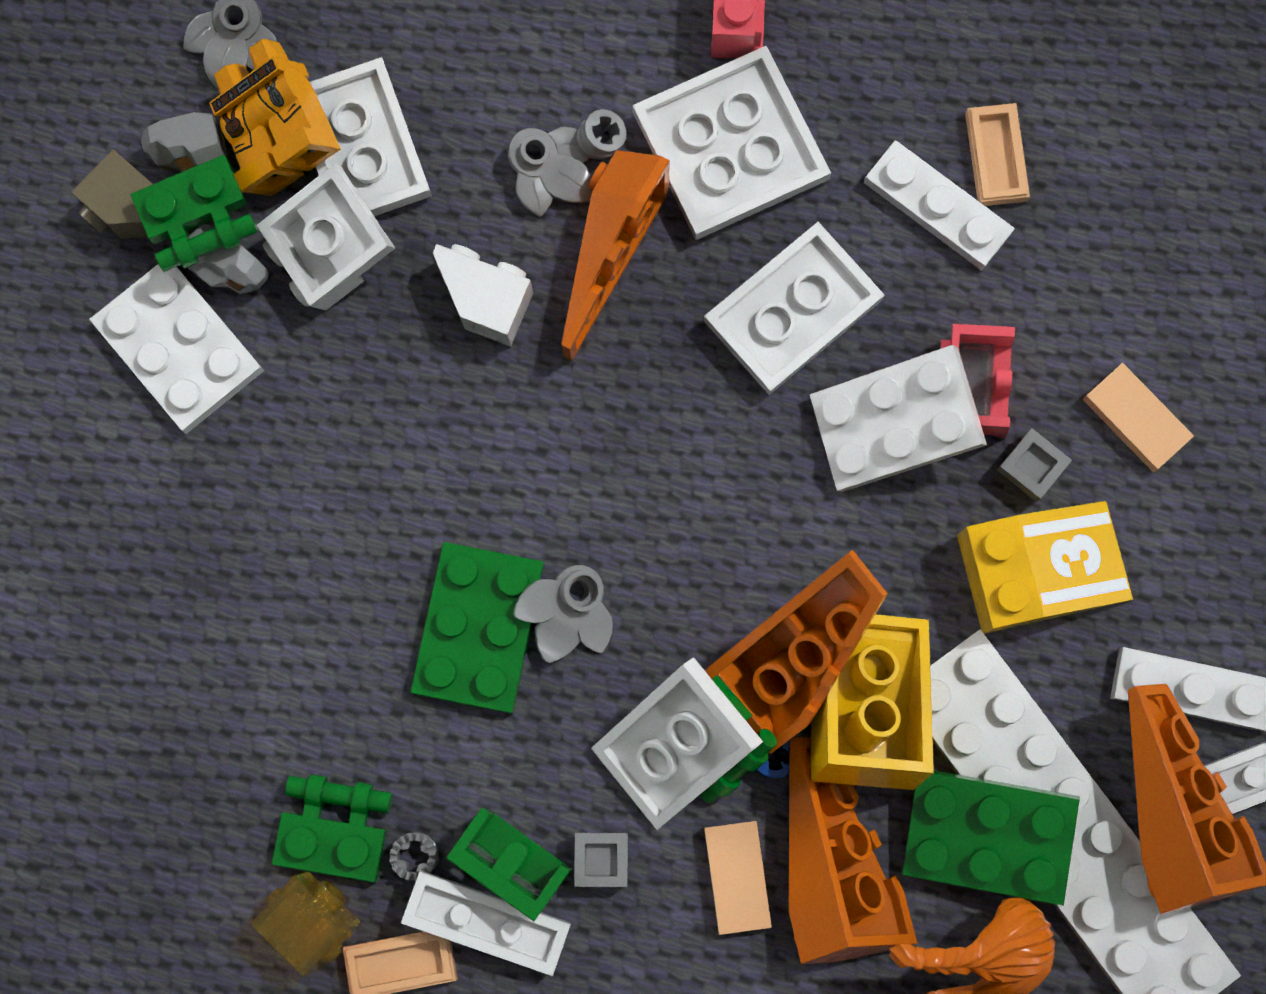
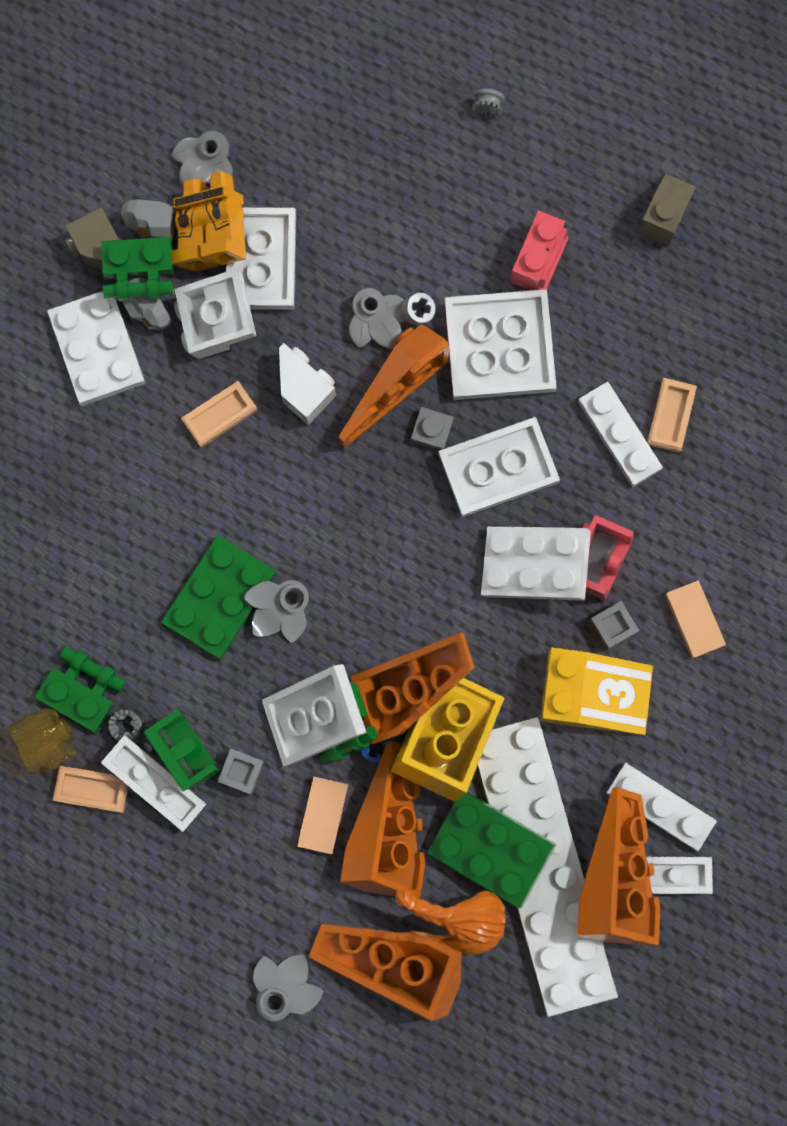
camera: 20 degrees right, 0 degrees up
(382, 375) = (219, 414): none -> light nougat tile
(682, 289) = (432, 429): none -> light grey plate

